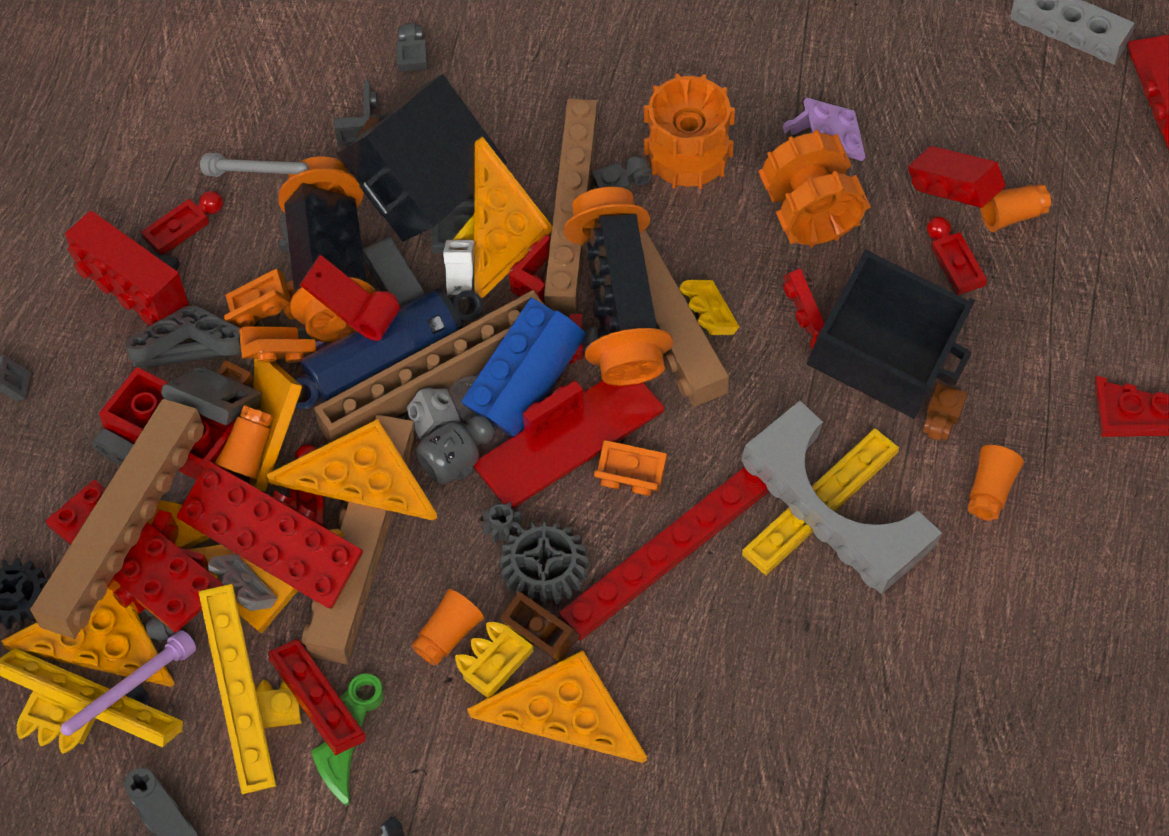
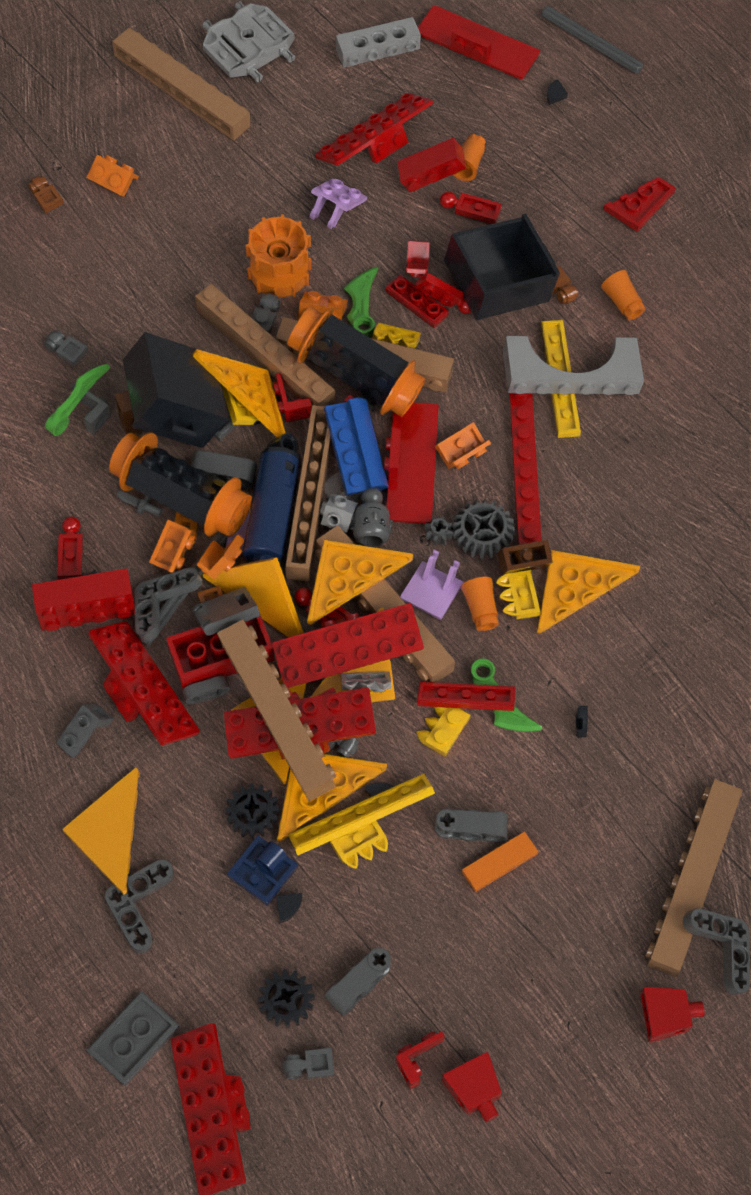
camera: 55 degrees left, 5 degrees up
(76, 392) = (140, 686): none -> red bracket
(178, 647) = (370, 746): lavender piece -> none
(216, 164) = (46, 504): light grey piece -> none
(237, 689) = (433, 728): yellow tile -> none
(246, 442) = (276, 615): orange plant -> none
(361, 86) = (59, 420): none -> bright green piece
(362, 311) = (256, 491): red door -> none
(425, 568) = (432, 589): none -> lavender plate
(459, 265) = (256, 431): white leg -> none
(677, 219) = (322, 303): none -> orange bracket
(734, 238) = (359, 291): none -> bright green piece
(778, 309) = (416, 301): none -> red tile
(812, 185) = (367, 226): orange piece -> none
(829, 257) = (417, 258): none -> red bracket
(952, 109) = (380, 133): none -> red bracket

